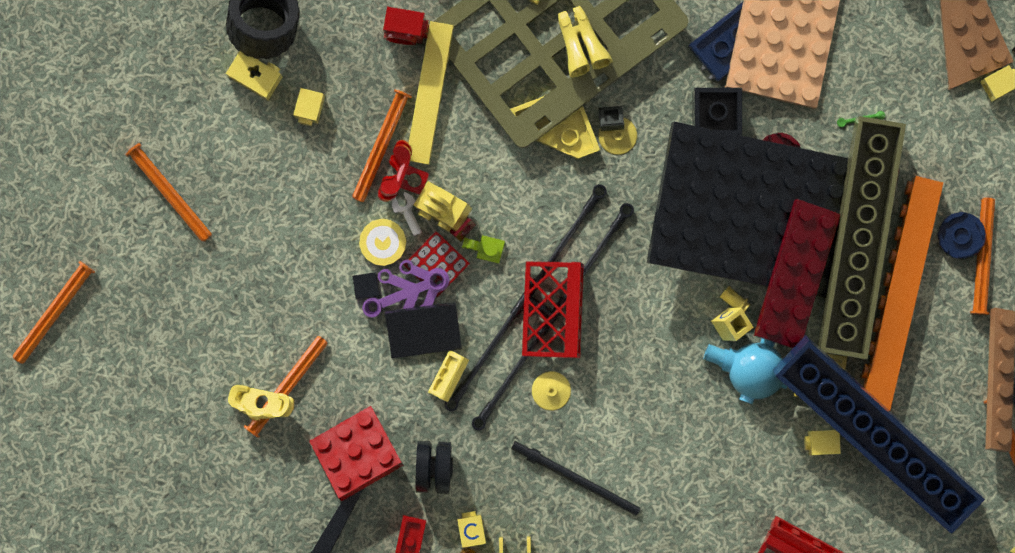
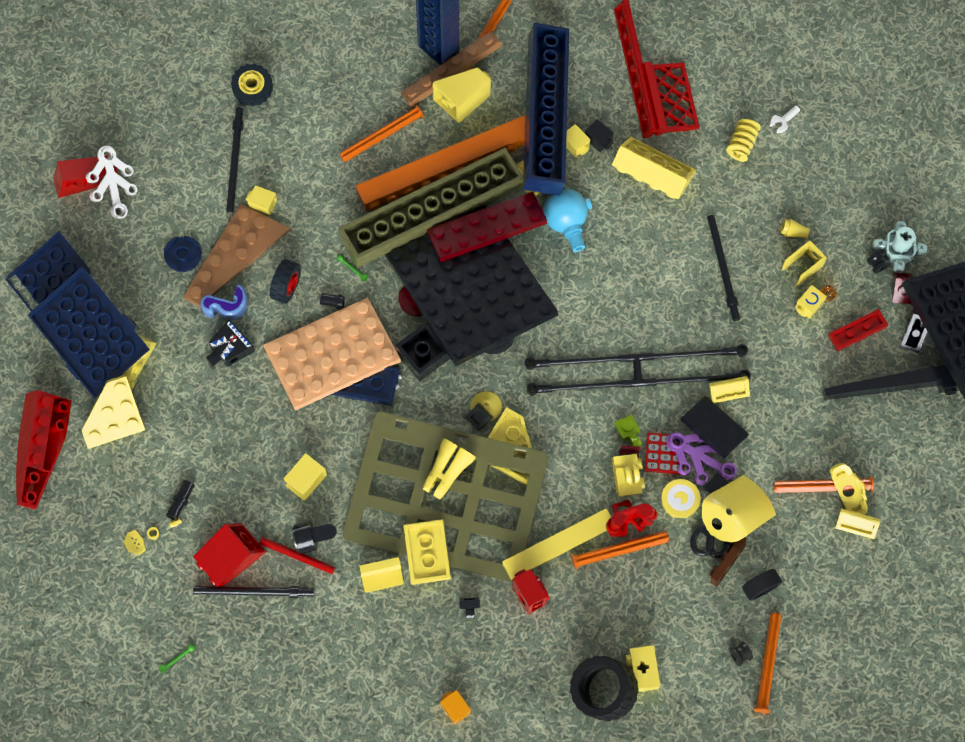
camera: 130 degrees left, 15 degrees down
(52, 312) = (911, 675): orange axle -> none
(197, 173) = (741, 653): none -> pearl dark grey wheel
(225, 384) = (857, 523): none -> light yellow tile
(240, 243) = (762, 584): none -> black tyre
(290, 236) = (728, 560): none -> reddish brown hinge
(308, 106) = (634, 615): light yellow brick -> none
(322, 236) = (709, 542): none -> black piece
(327, 293) = (748, 506): none -> light yellow piece
(356, 453) = (827, 406): red plate -> none
(408, 214) = (649, 495): white bar -> none
(435, 467) = (794, 350): black wheel -> none
(551, 390) = (682, 323): light yellow piece -> none
(573, 309) = (621, 344): red fence -> none
(732, 324) = (549, 243): light yellow brick -> none
(734, 299) = (532, 255): light yellow pin -> none
(734, 497) = (653, 167): none -> light yellow slope
(810, 470) = (600, 136): none -> black brick
(836, 75) = (332, 300): none -> black pin
(892, 36) = (285, 281): none -> black wheel
(962, 235) = (379, 154): dark blue tile -> none
(963, 368) = (462, 92): none -> light yellow slope

